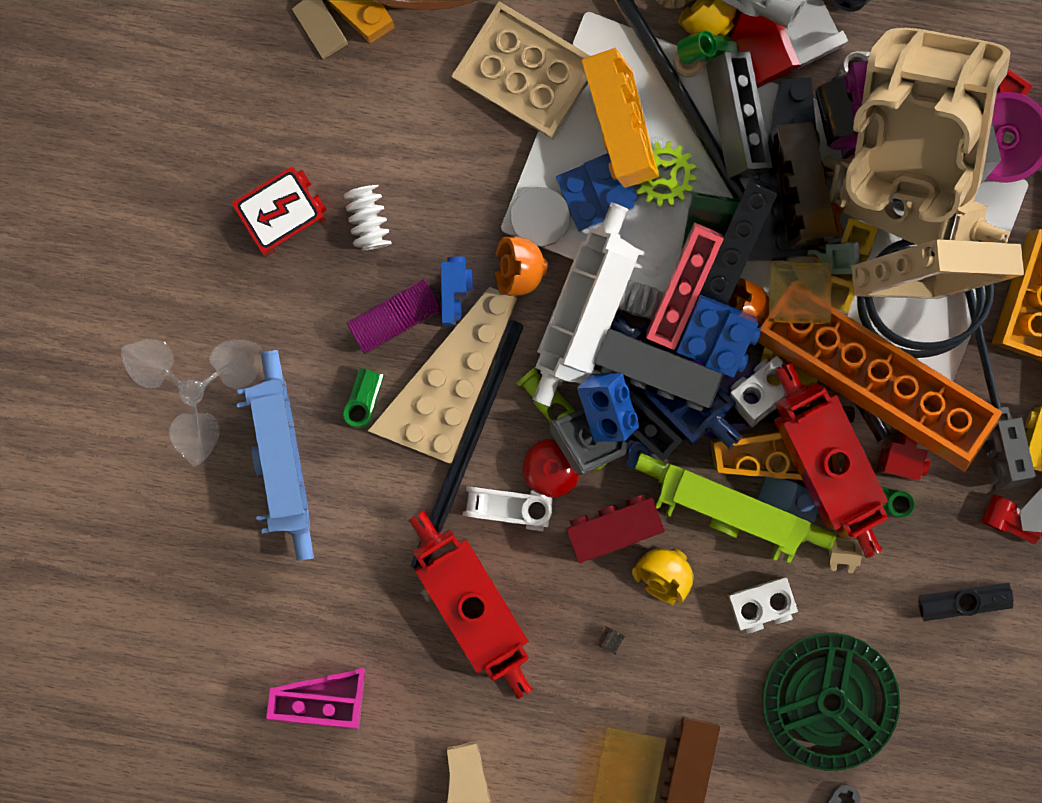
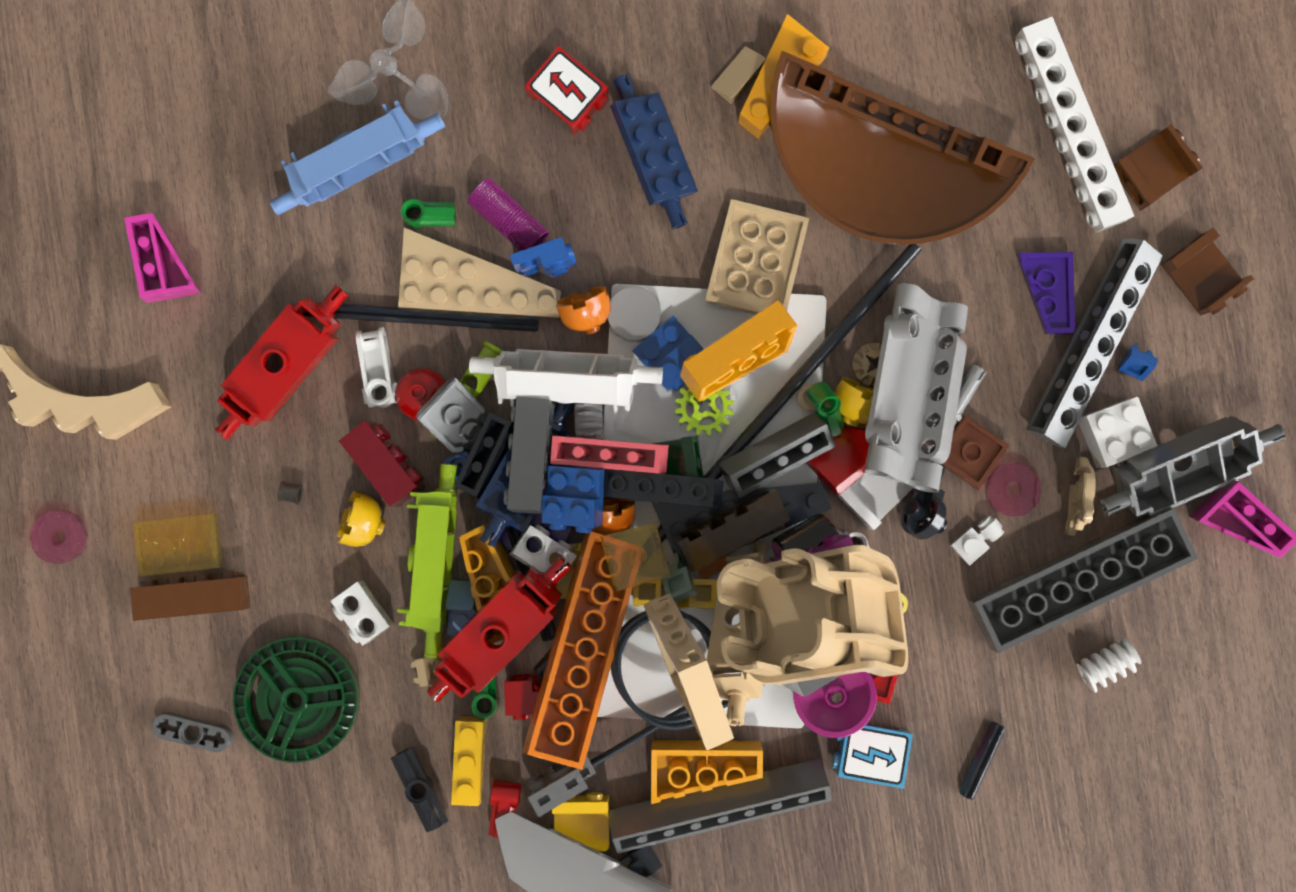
camera: 75 degrees right, 0 degrees up
(366, 218) = (584, 166): white piece -> none
(372, 140) = (653, 149): none -> dark blue plate
(608, 407) = (482, 422): blue brick -> none
(952, 539) = (469, 761): none -> yellow brick

